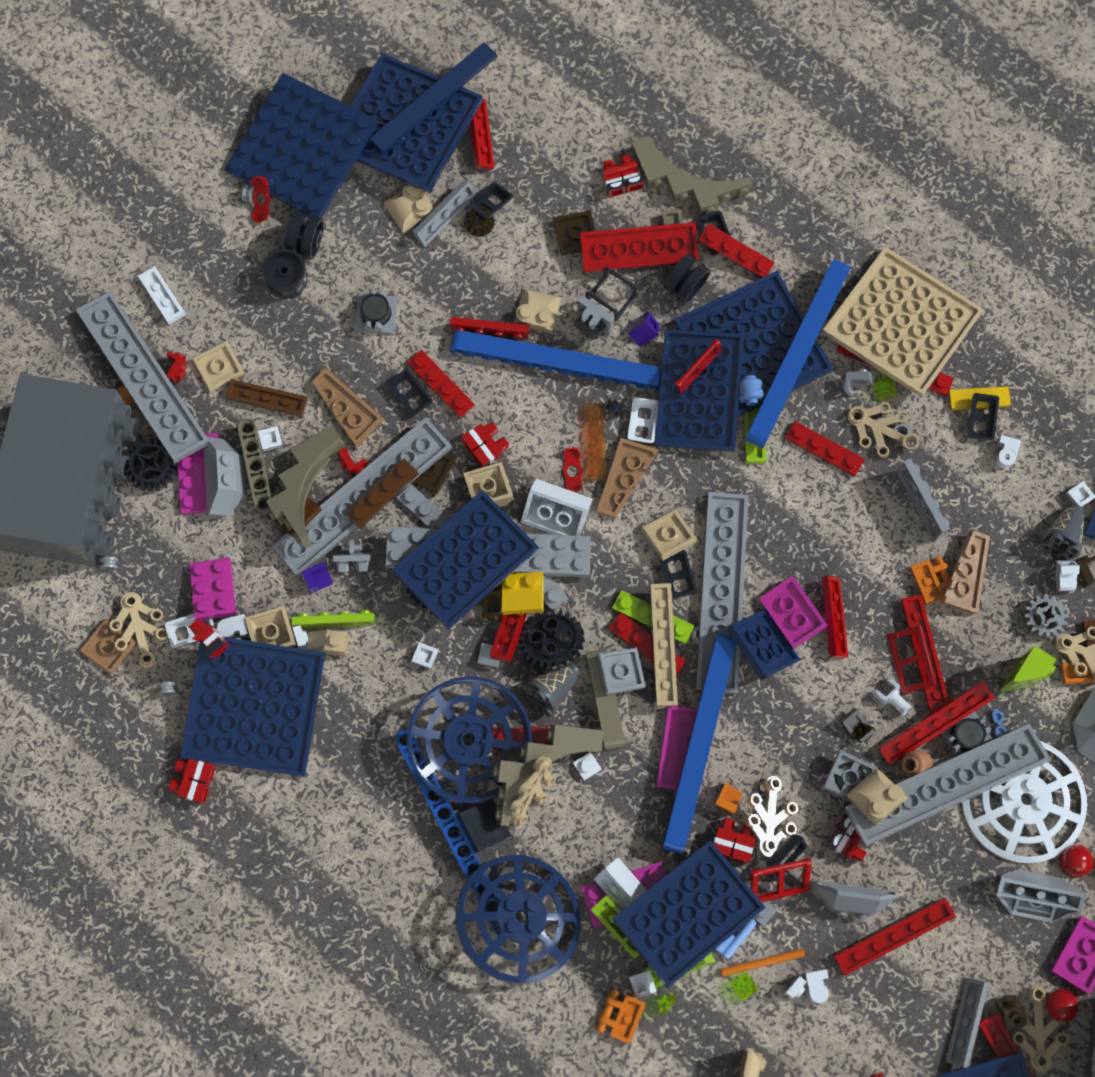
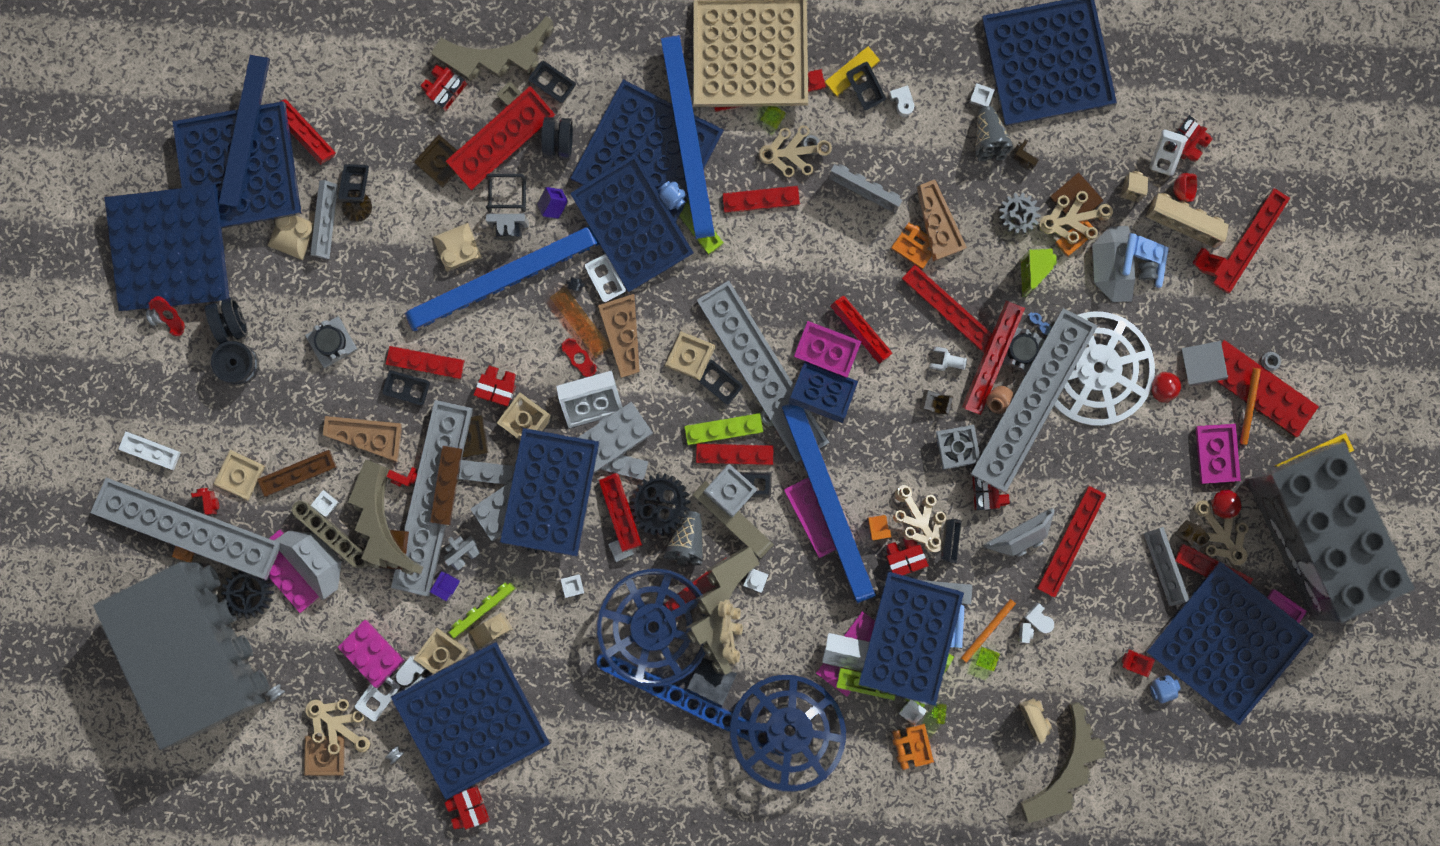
camera: 30 degrees left, 10 degrees up
(209, 635) = (400, 697): red hips -> none
(300, 637) = (467, 641): white plate -> none
(492, 605) = (597, 510): dark brown bracket -> none
(497, 329) = (438, 286): red plate -> none
(523, 593) = (612, 484): yellow plate -> none
(663, 645) = (747, 446): tan plate -> none
(683, 383) = (619, 207): red window -> none
(735, 251) = (579, 86): red plate -> none
(780, 891) = (970, 536): red window -> none
(859, 378) = (749, 121): light grey bracket -> none
(877, 797) = (989, 449): tan slope -> none
(924, 656) = (950, 312): red window -> none
(1039, 896) = (1156, 434): light grey wedge -> none
(1066, 575) = (1014, 170): white leg -> none

